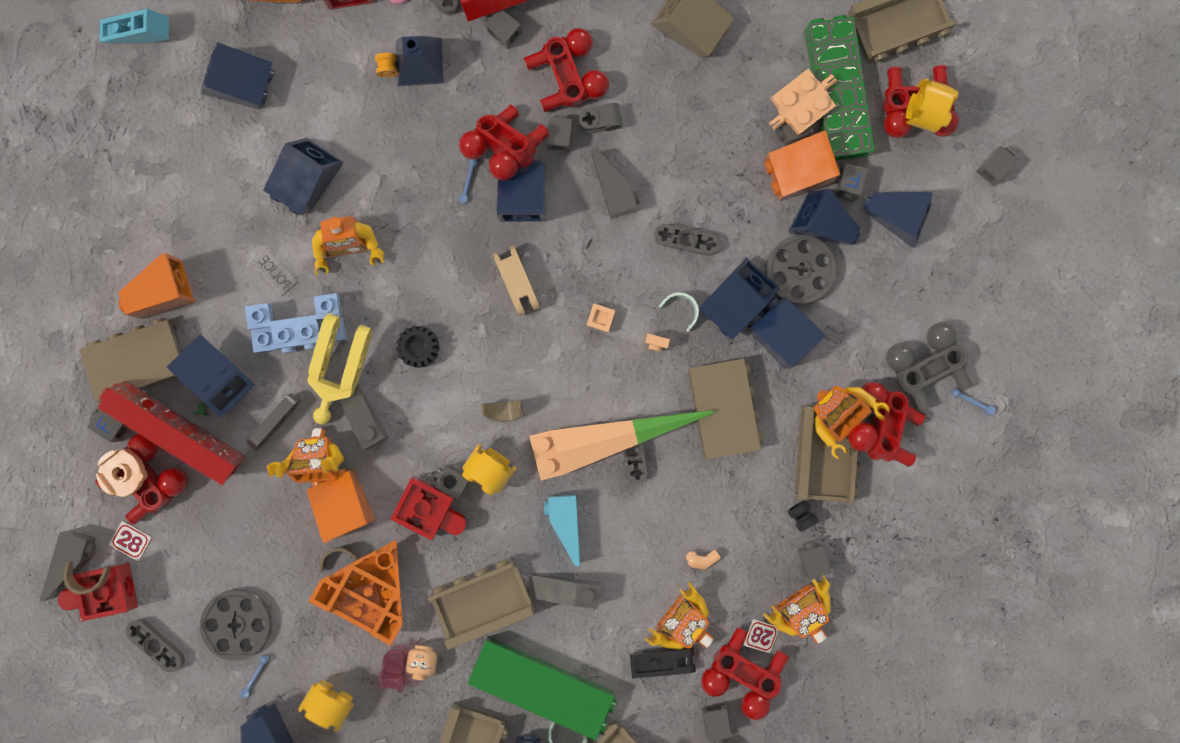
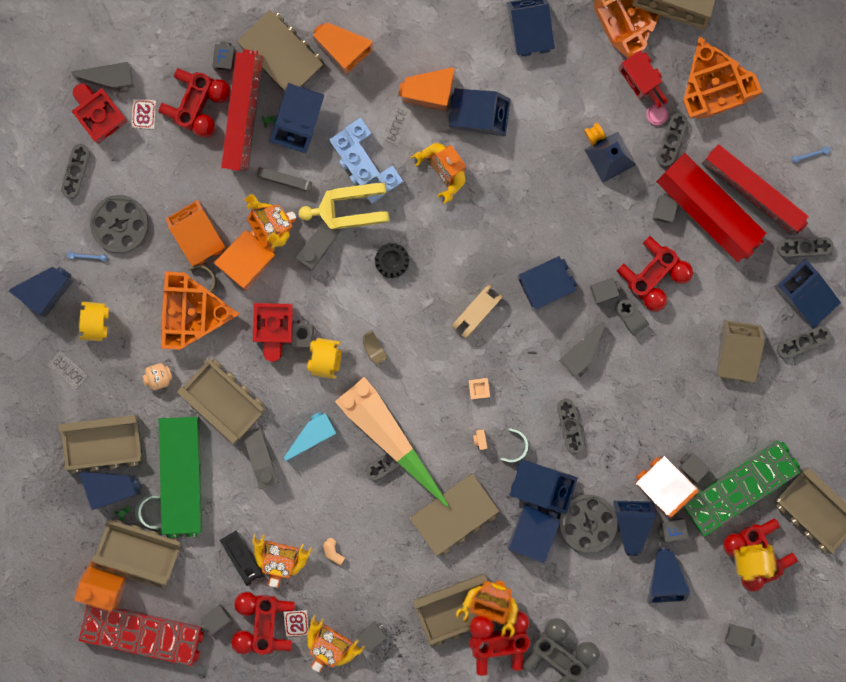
camera: 60 degrees right, 0 degrees up
(74, 587) = (95, 95): dark tan helmet -> none
(133, 469) = (192, 76): light nougat plate -> none
(249, 219) = (428, 89): none -> orange slope
(285, 547) = (195, 233): none -> orange slope
(393, 673) = (138, 358): clear pink piece -> none
(463, 198) = (521, 240): medium blue hinge -> none
(510, 146) = (575, 261): red piece -> none
(802, 102) = (714, 464): light nougat plate -> none
(802, 515) = (401, 612): black wheel -> none

